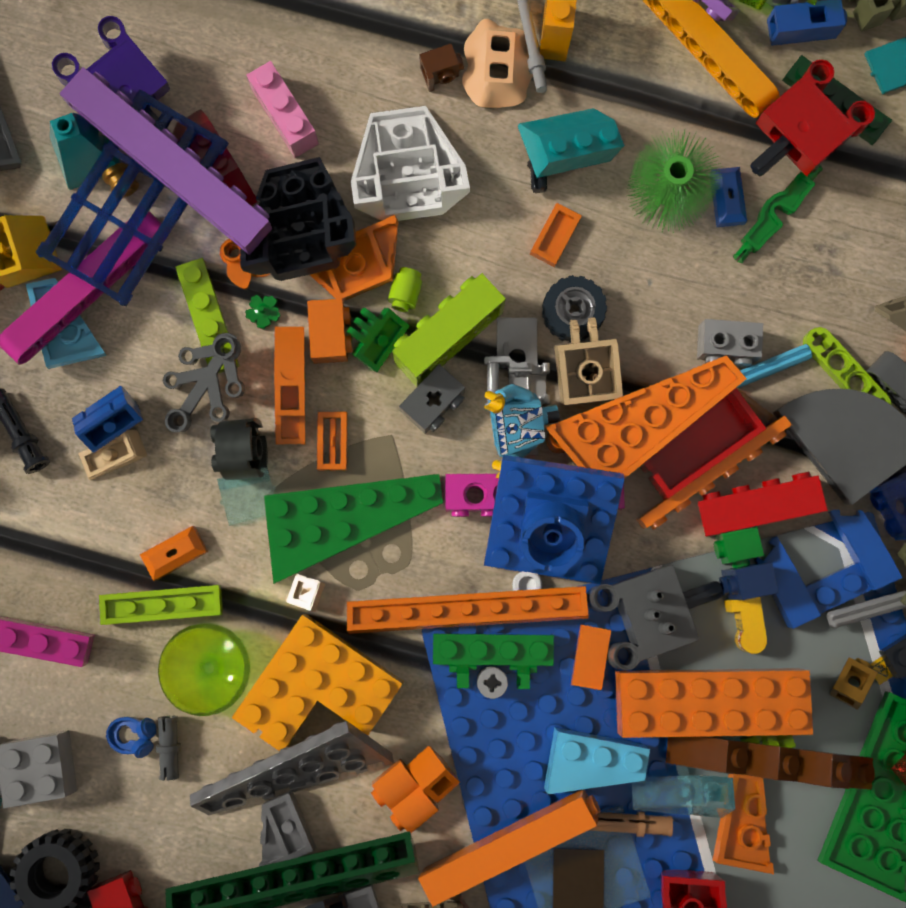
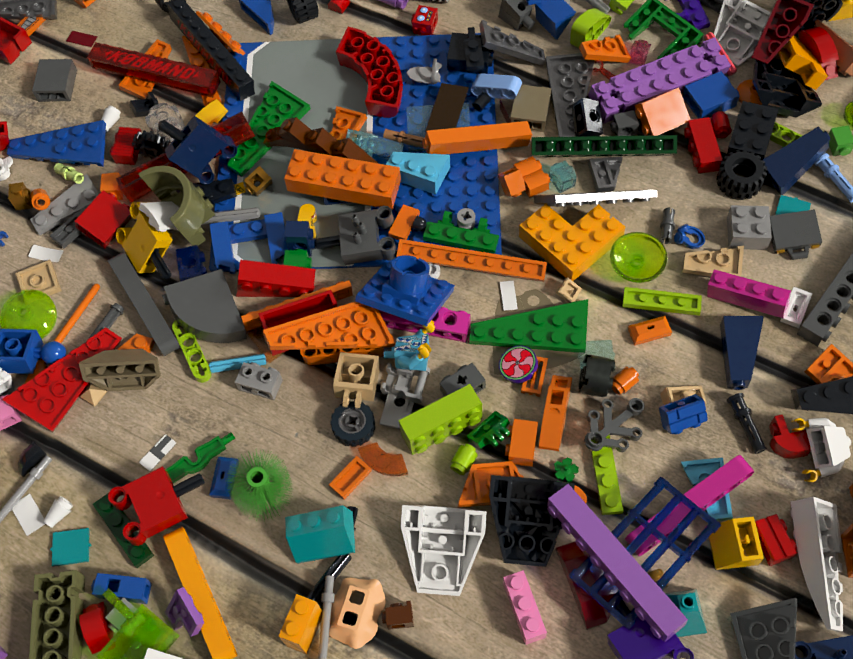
camera: 155 degrees left, 20 degrees down
(34, 546) = (740, 344): none -> dark blue slope
(81, 692) = (705, 262): none -> tan wing
(198, 458) = (625, 380): none -> orange brick
(352, 809) = (562, 176): none -> clear light blue brick
(358, 449) = (518, 364): none -> tile
(398, 569) = (508, 295): none -> white sticker
(517, 267) = (383, 462): none -> clear orange tile
(544, 99) = (334, 570): none -> black axle
(564, 658) = (419, 224): none -> black hinge
(833, 214) = (154, 456): none -> white sticker

